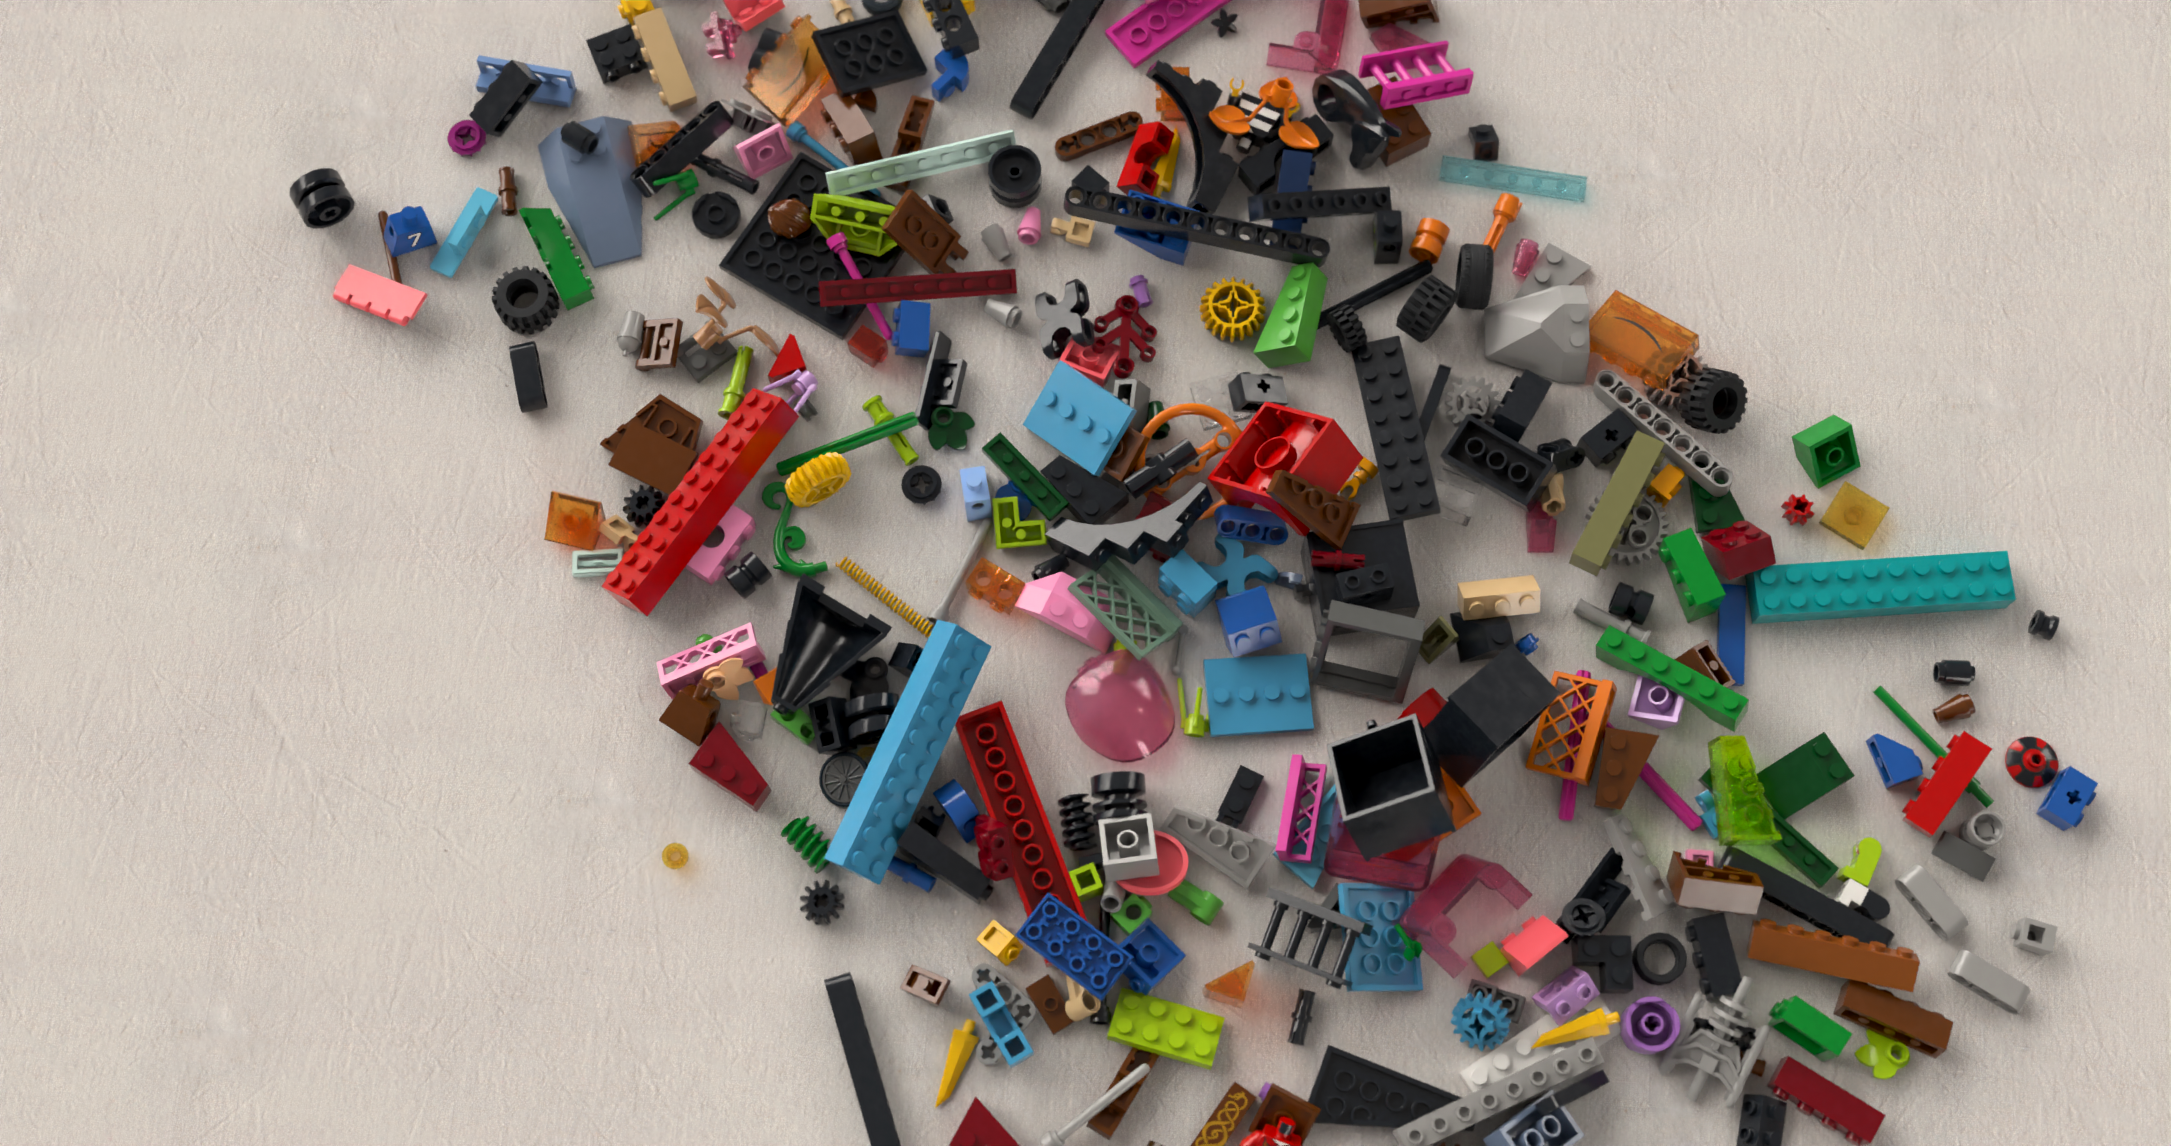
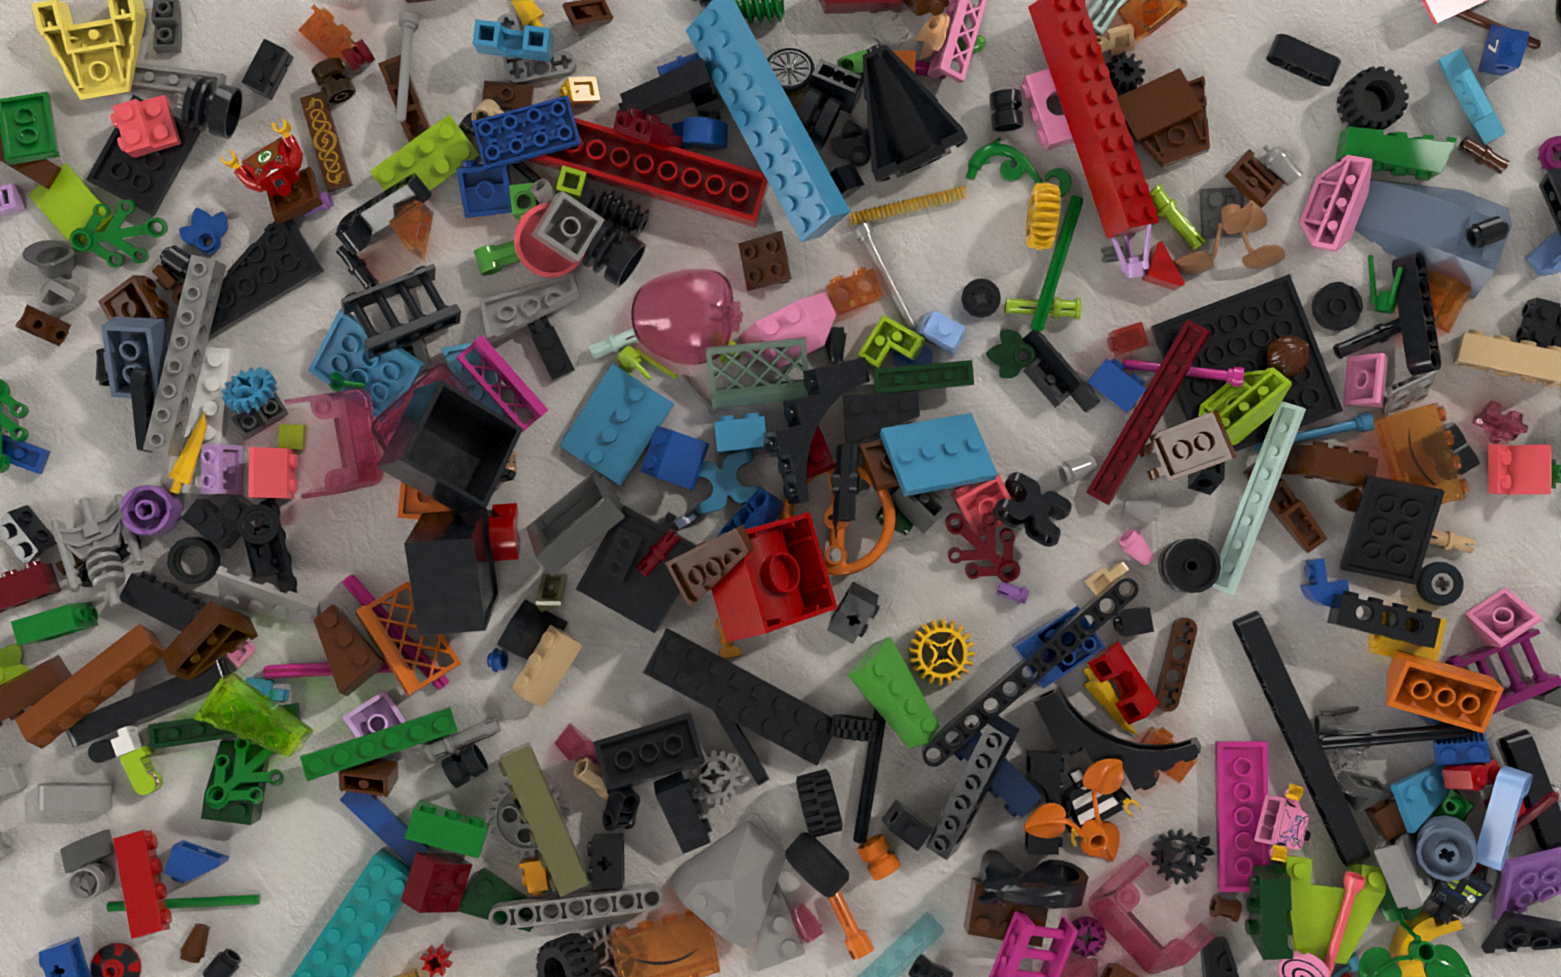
camera: 120 degrees right, 15 degrees up
(635, 269) = (1336, 203): none -> bright pink wedge
(1025, 677) = (765, 261): none -> reddish brown hinge
(1193, 748) = (613, 343): none -> light aqua axle
(1234, 30) = (1184, 864): none -> black gear
(1238, 1027) = (372, 216): none -> black beam
(1348, 52) = (1095, 929): none -> magenta gear
(1792, 771) = (242, 774): none -> green plant

